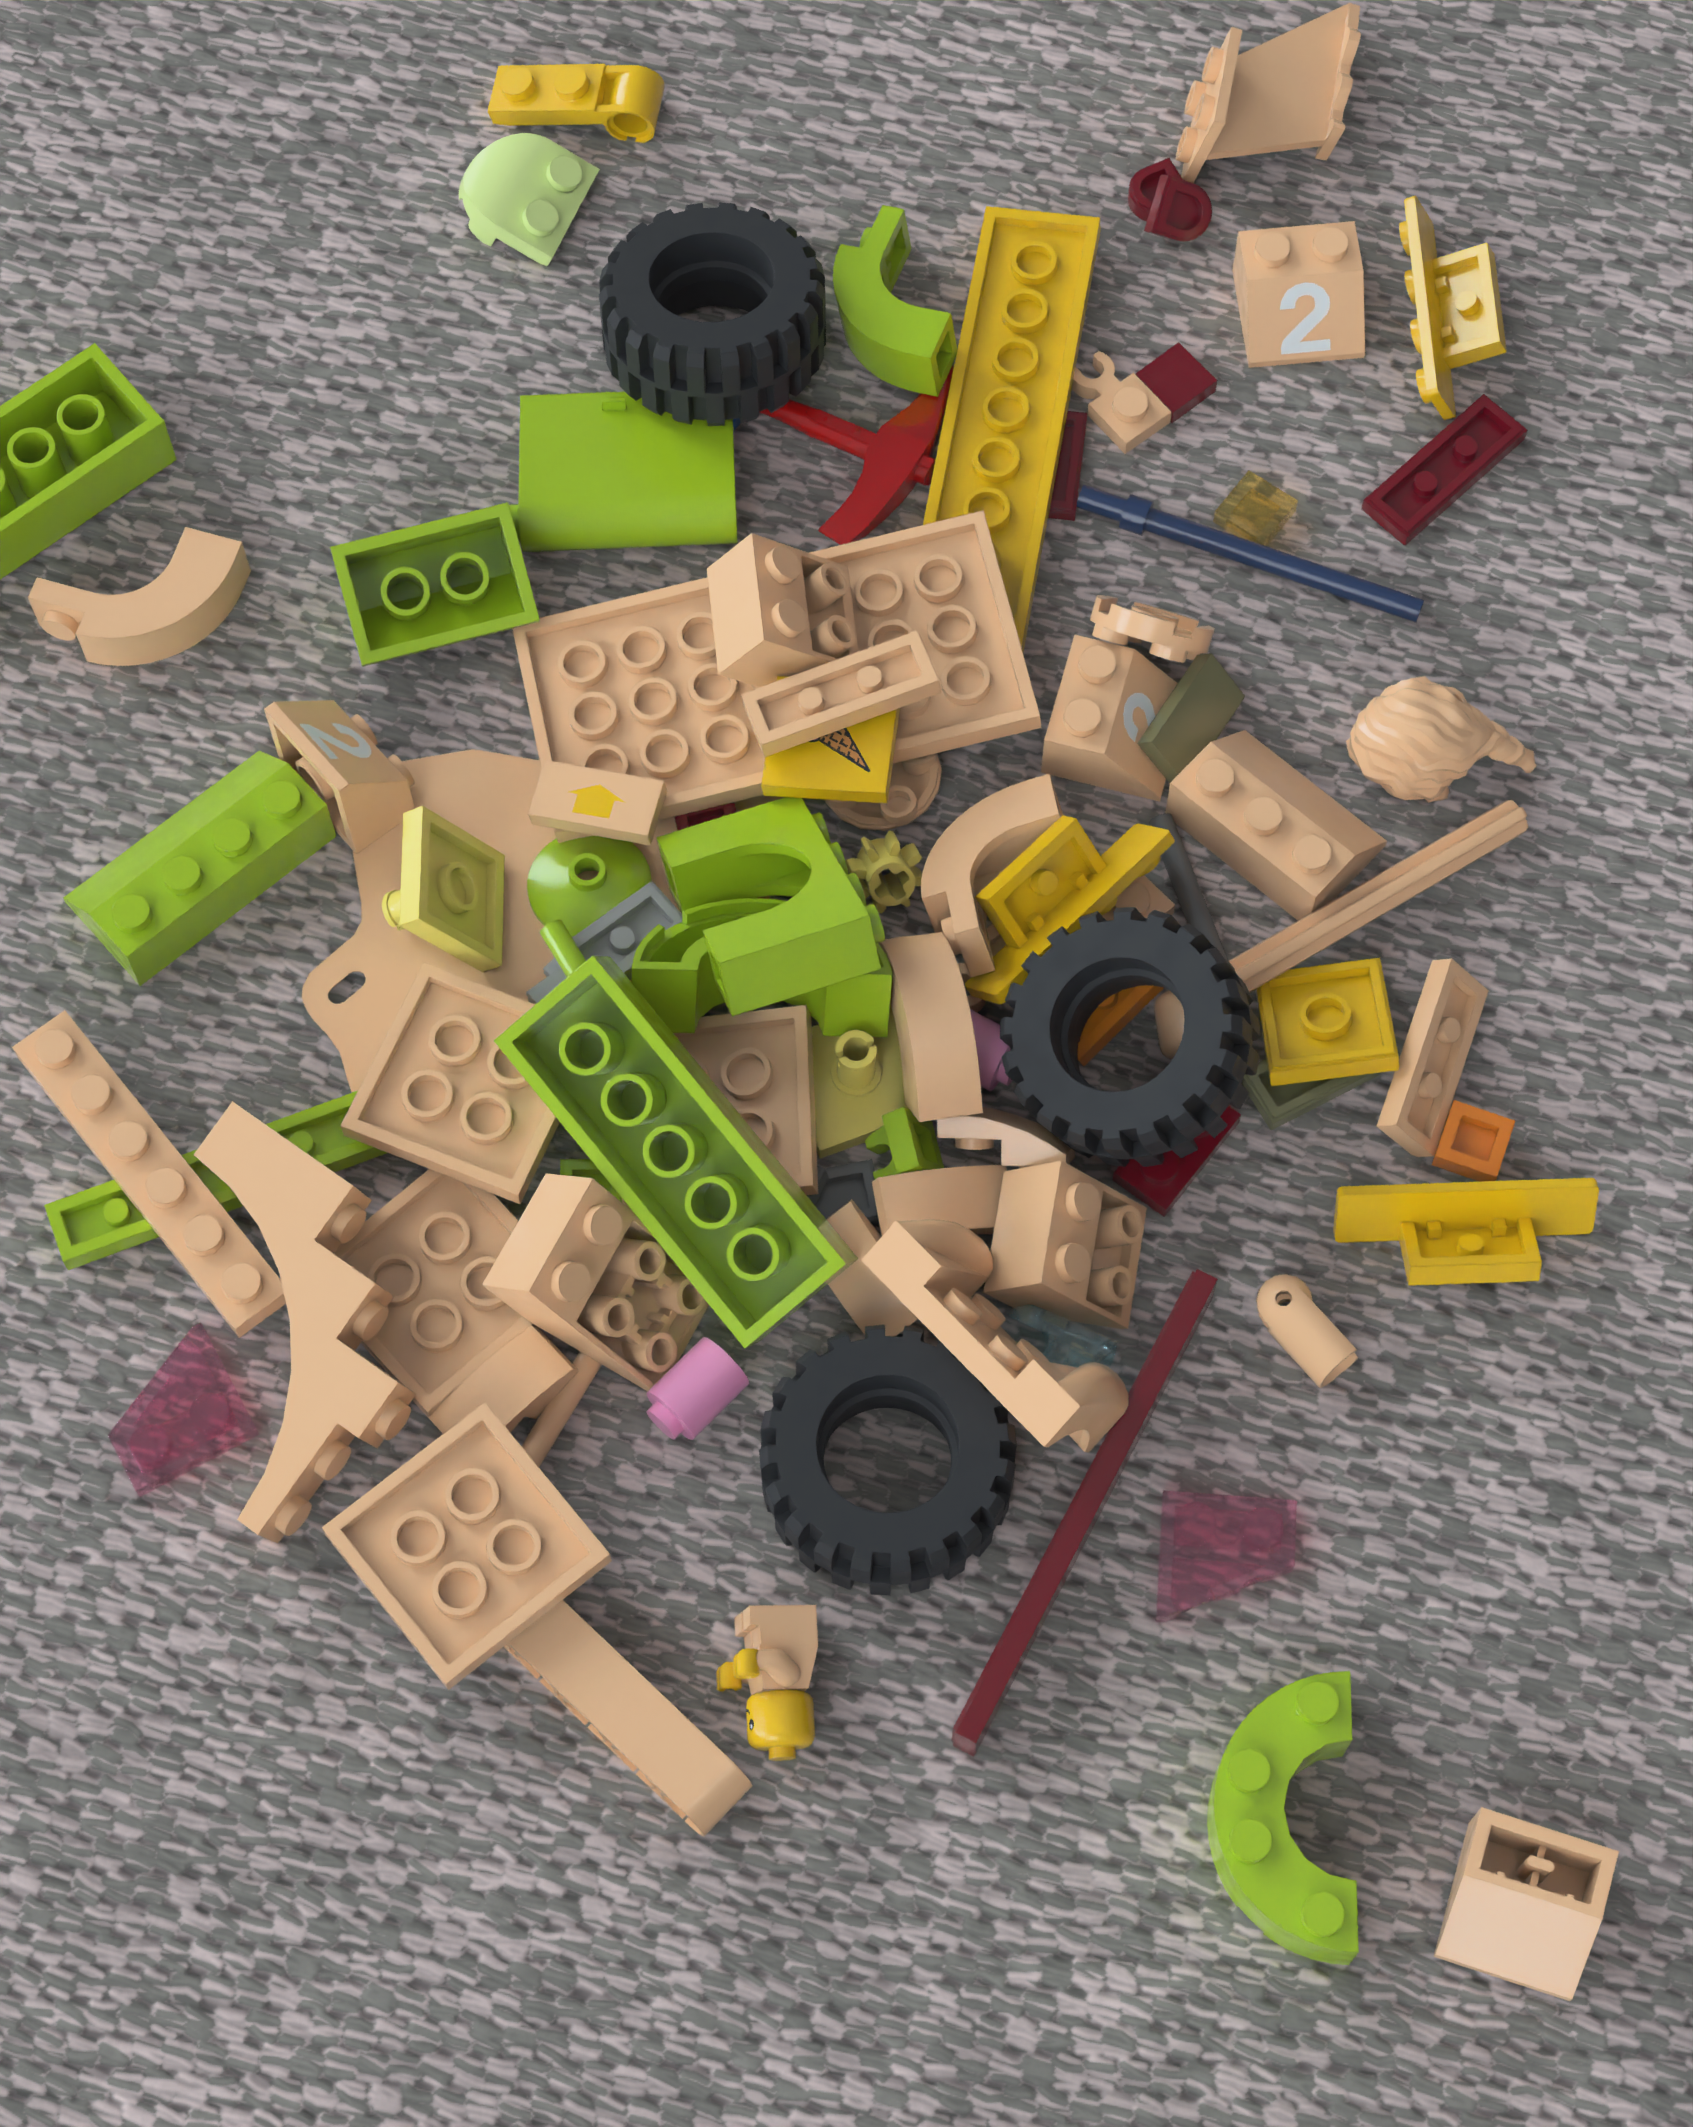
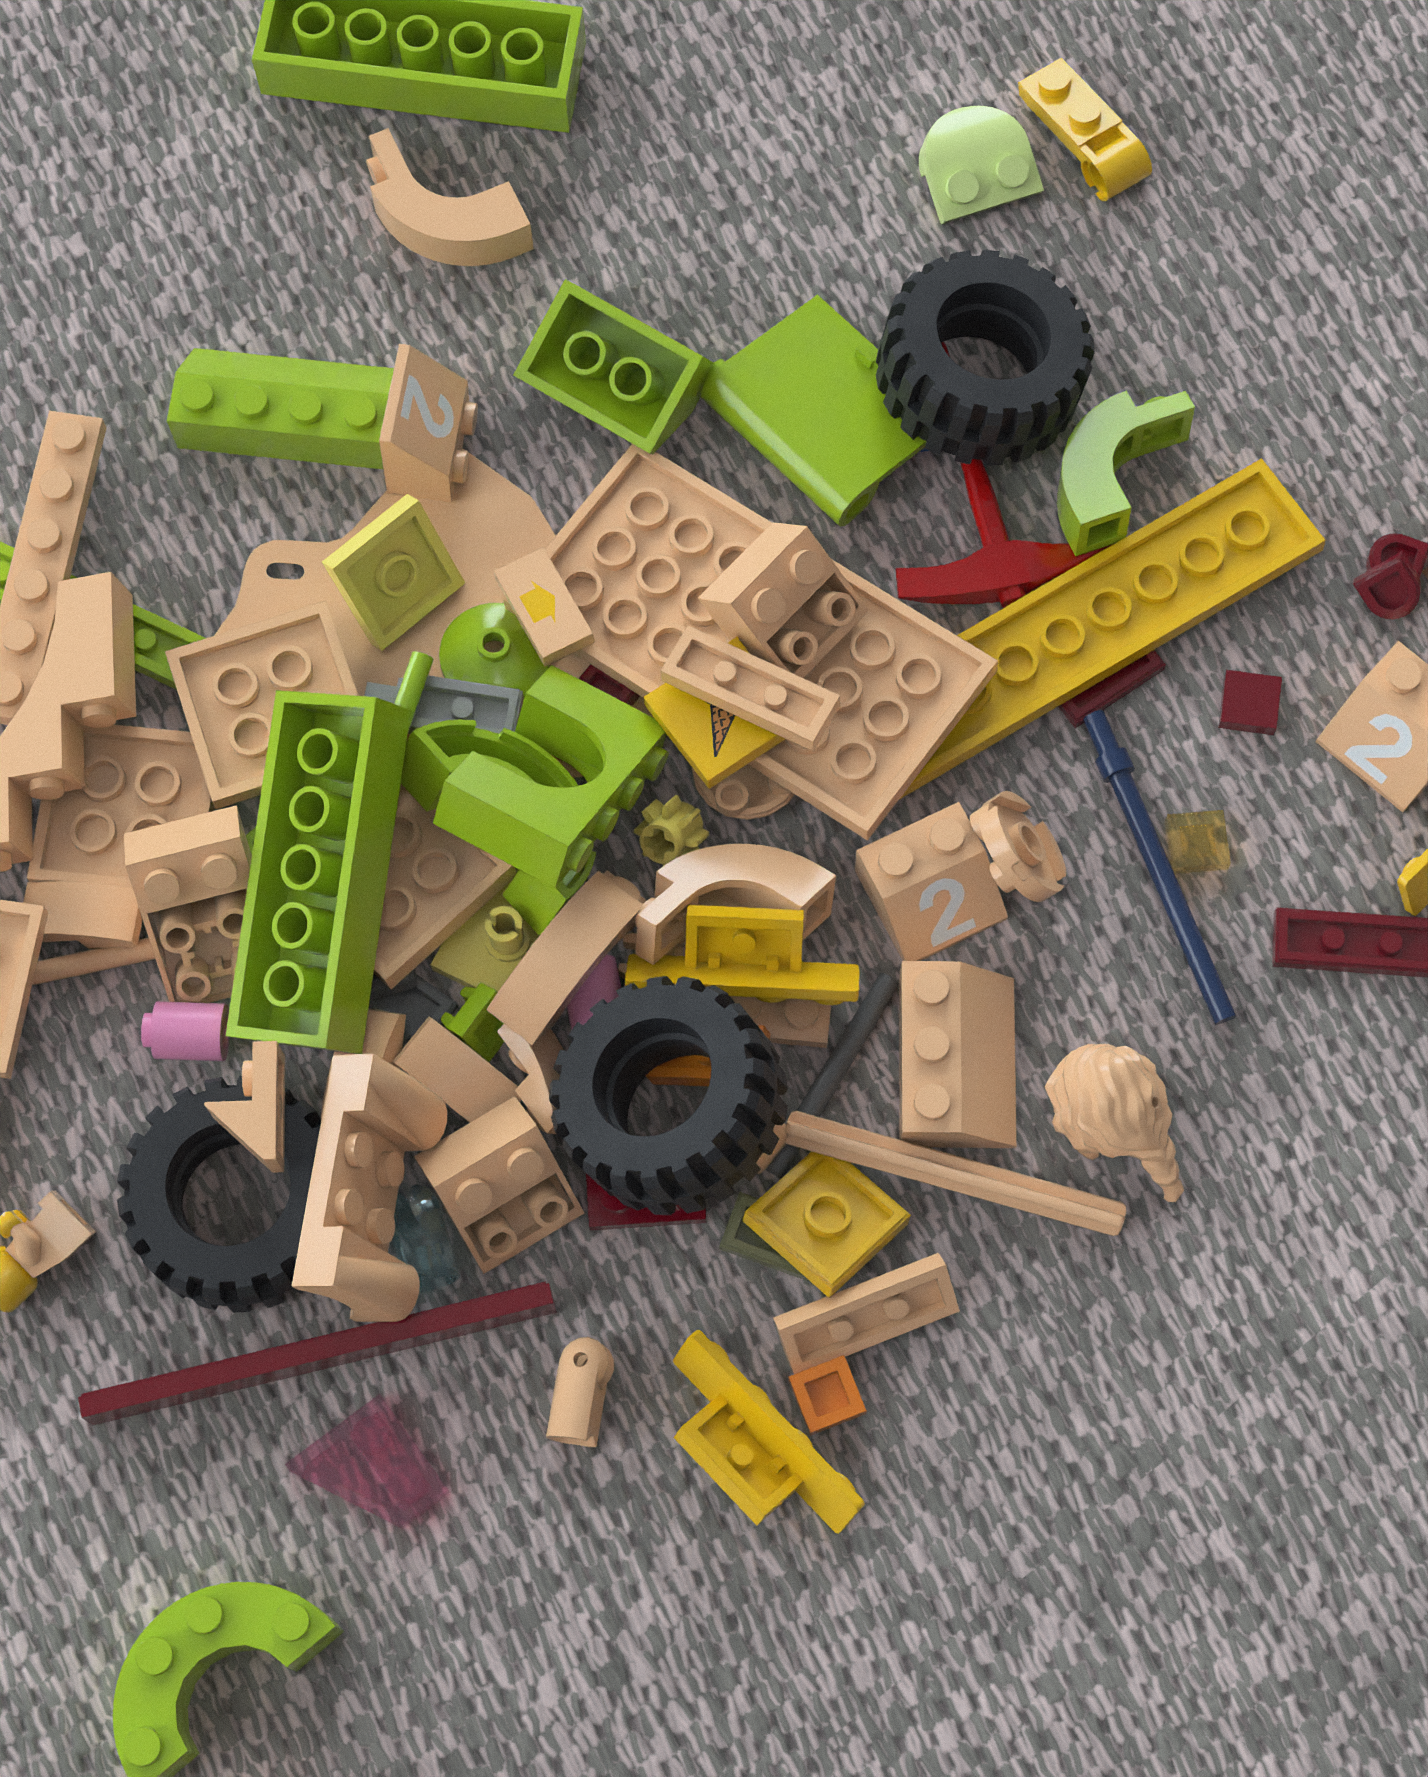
camera: 50 degrees right, 5 degrees up
(868, 1364) = (261, 1121): none -> light nougat slope
(1123, 409) = (1195, 685): light nougat plate -> none
(1191, 716) = (982, 933): olive tile -> none

